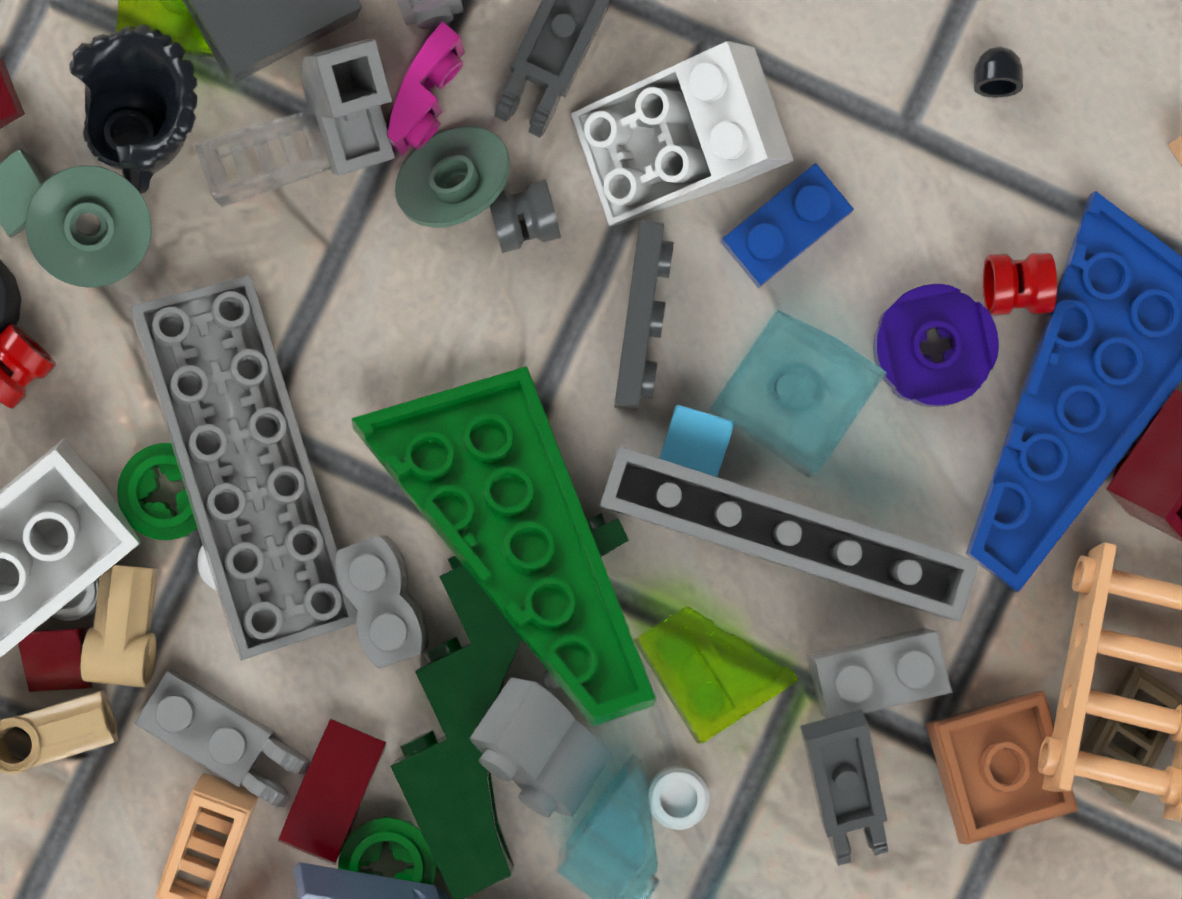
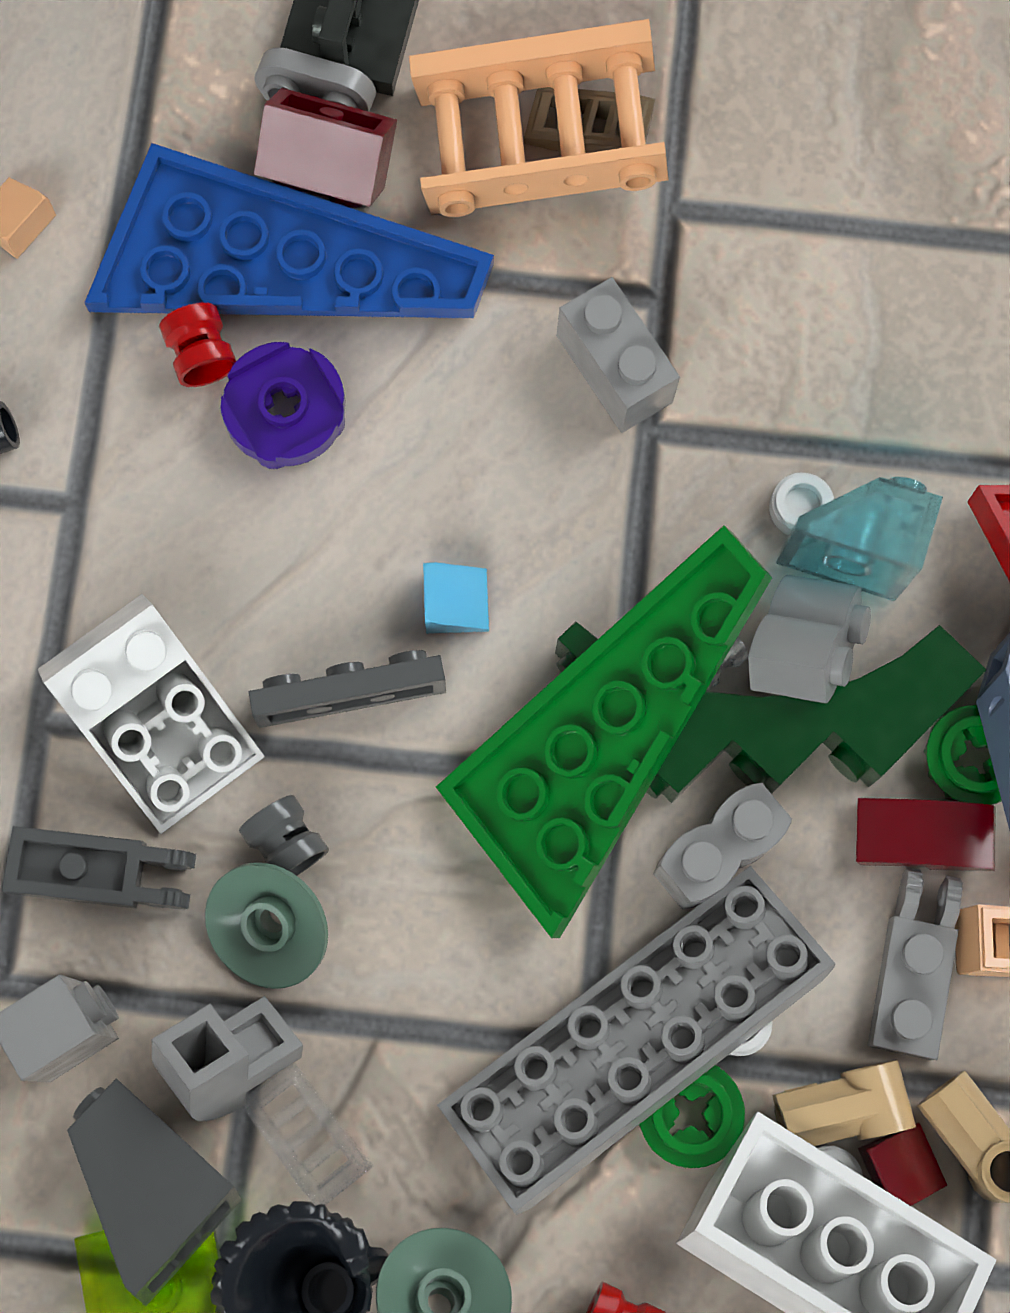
camera: 115 degrees left, 10 degrees down
(415, 107) = (219, 986): dark pink slope -> none
(708, 672) = (672, 509): clear neon green wing -> none
(787, 225) = (209, 582): blue plate -> none
(789, 534) = (516, 480): light grey brick -> none
(797, 392) = (372, 514): clear light blue slope -> none
(846, 781) = (730, 346): dark grey hinge -> none
(992, 767) = (664, 229): nougat plate -> none

